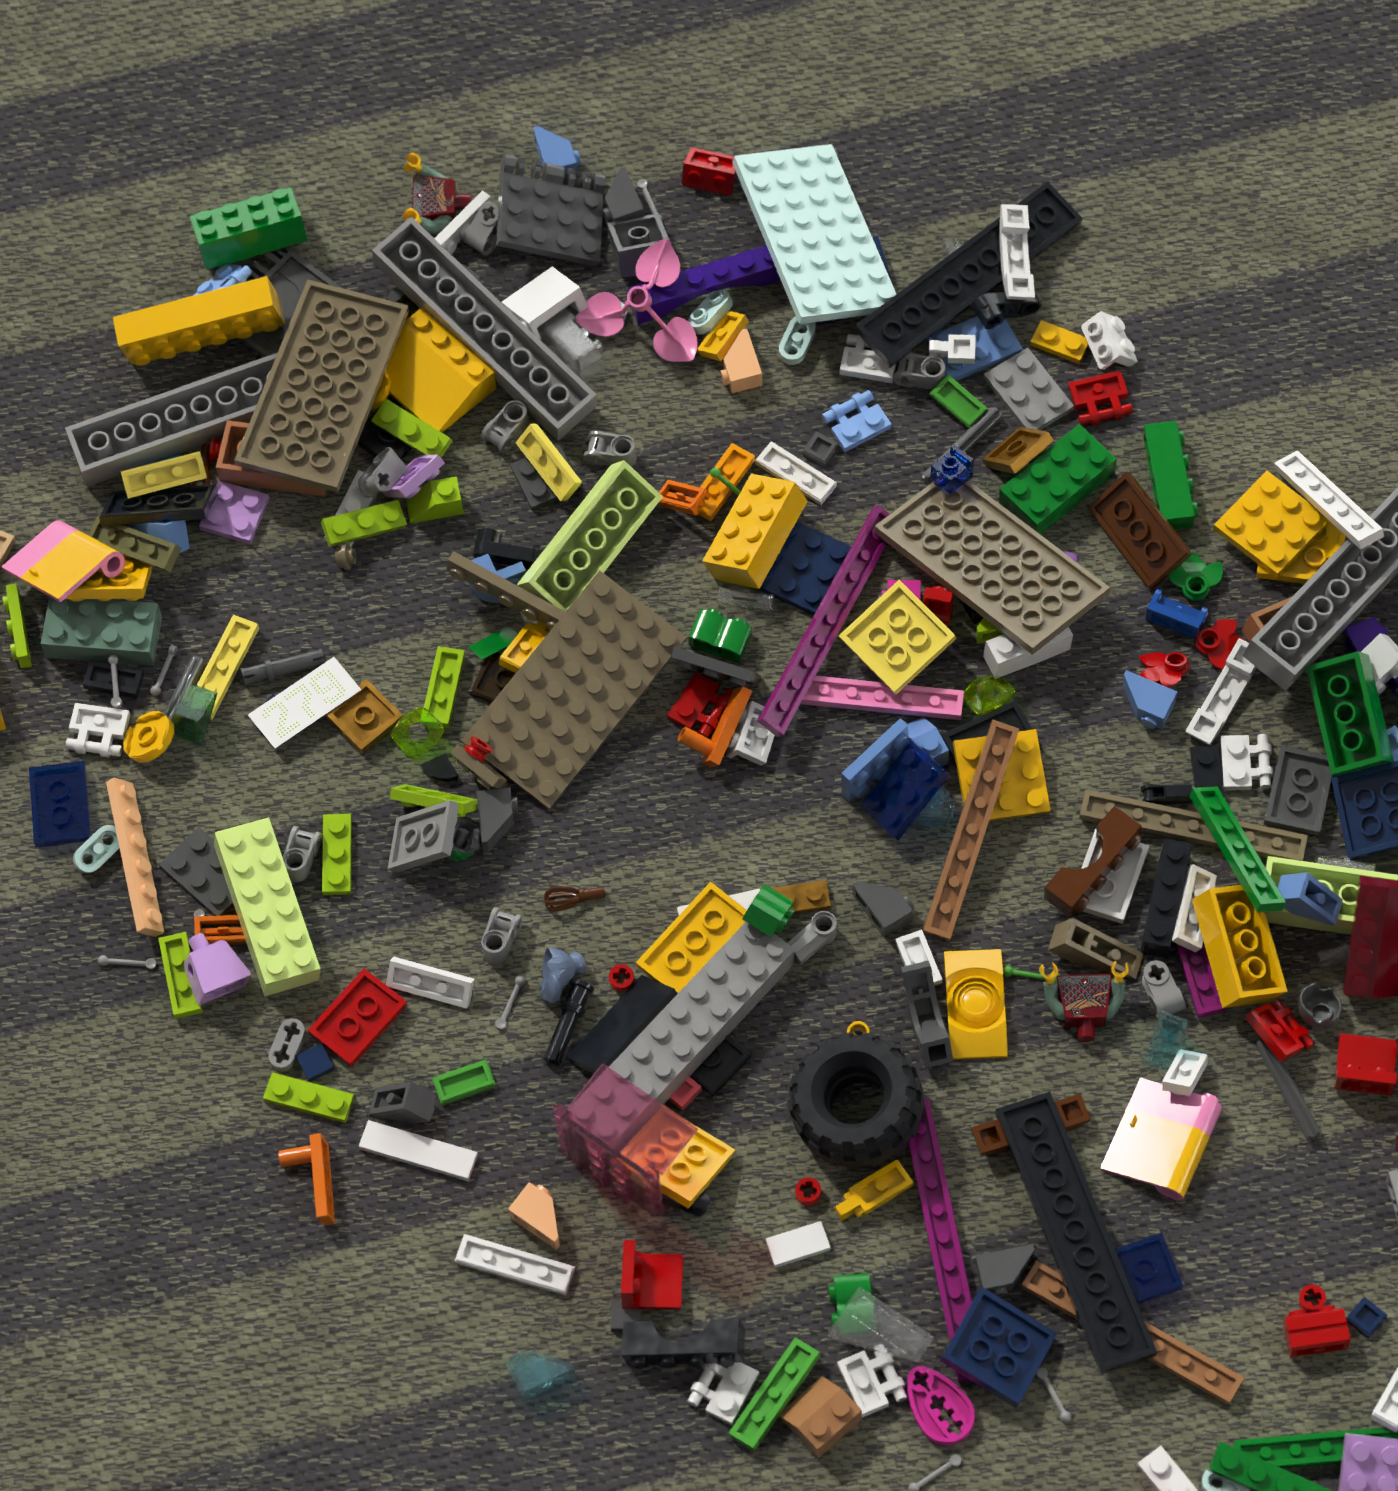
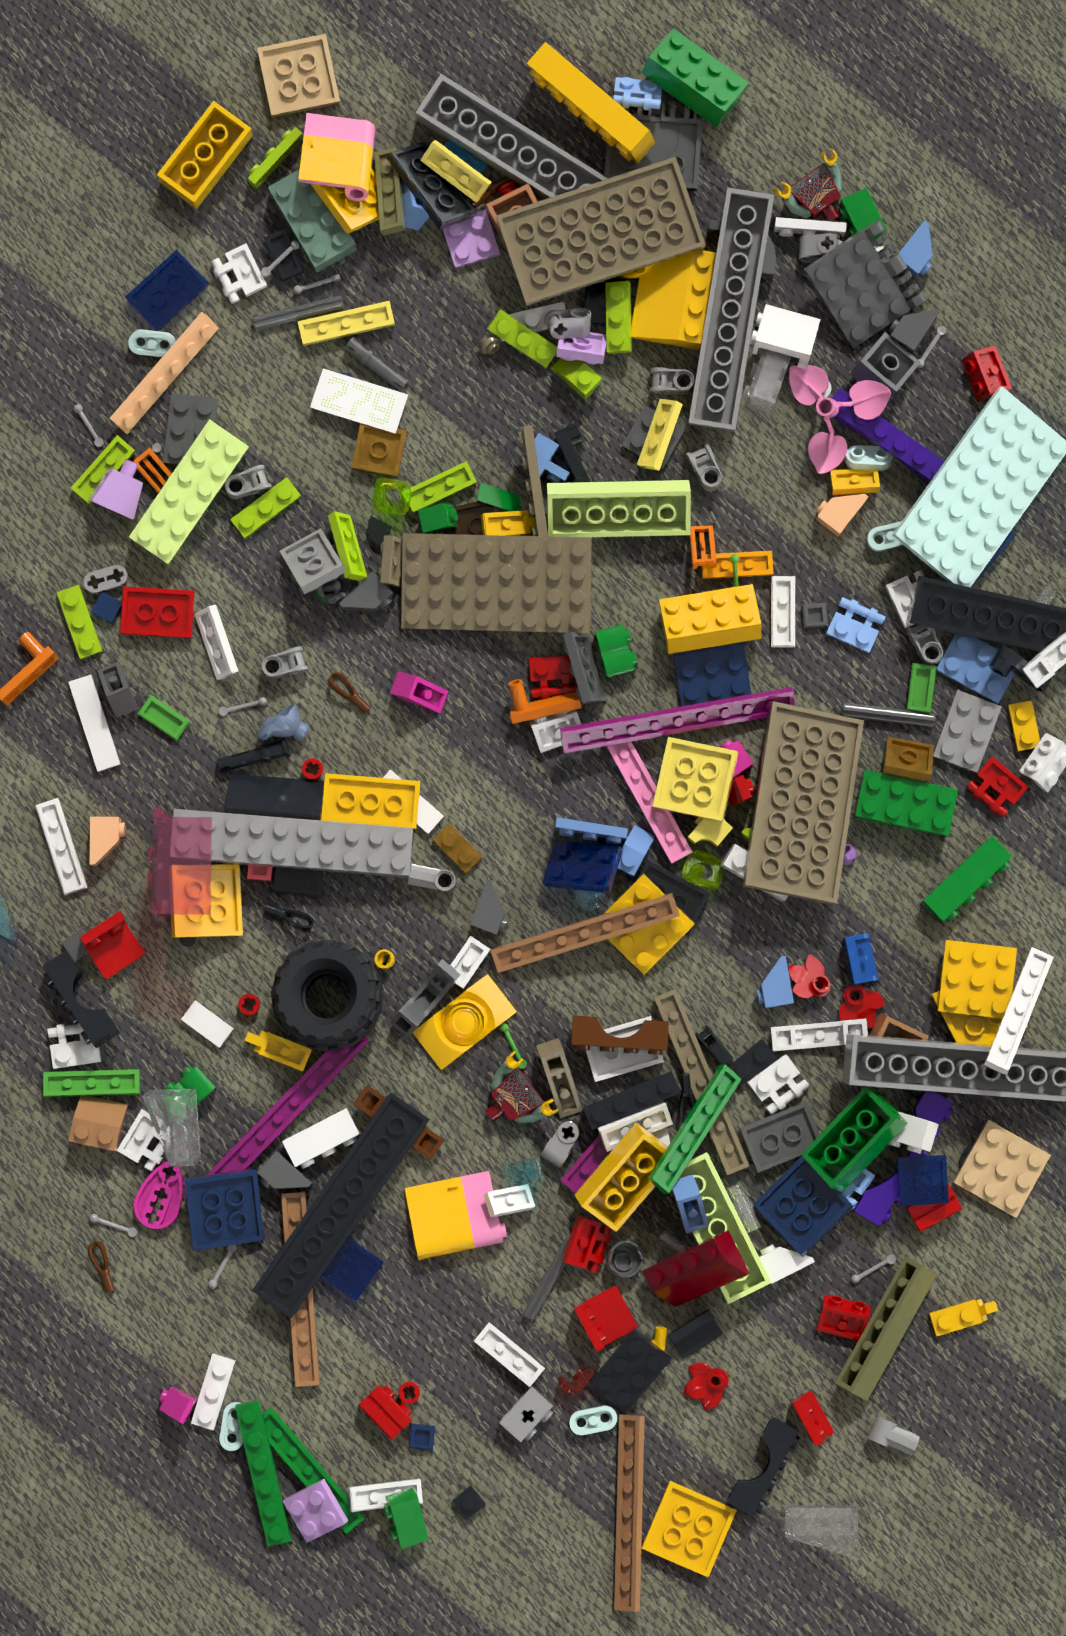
camera: 45 degrees right, 20 degrees up
(148, 737) = (256, 314): yellow tile -> none
(194, 713) = (295, 332): clear green slope -> none
(471, 702) = (438, 518): none -> green brick
(478, 749) = (400, 551): red bush -> none
(479, 175) = (859, 211): none -> green brick
(621, 831) = (419, 691): none -> dark pink slope
(742, 1099) = (282, 914): none -> black piece
(764, 602) = (656, 648): clear pin -> none
(769, 911) = (423, 838): green brick -> none
(952, 470) = (851, 730): clear blue brick -> none
(955, 662) = (710, 831): none -> light yellow brick
(959, 349) = (960, 660): white plate -> none
(994, 1208) = (321, 1139): none -> white brick
(1140, 530) = (906, 889): reddish brown tile -> none
(1184, 837) = (686, 1092): none -> black piece
(1196, 574) = (902, 949): green plate -> none
(1340, 1177) = (509, 1354): none -> white plate

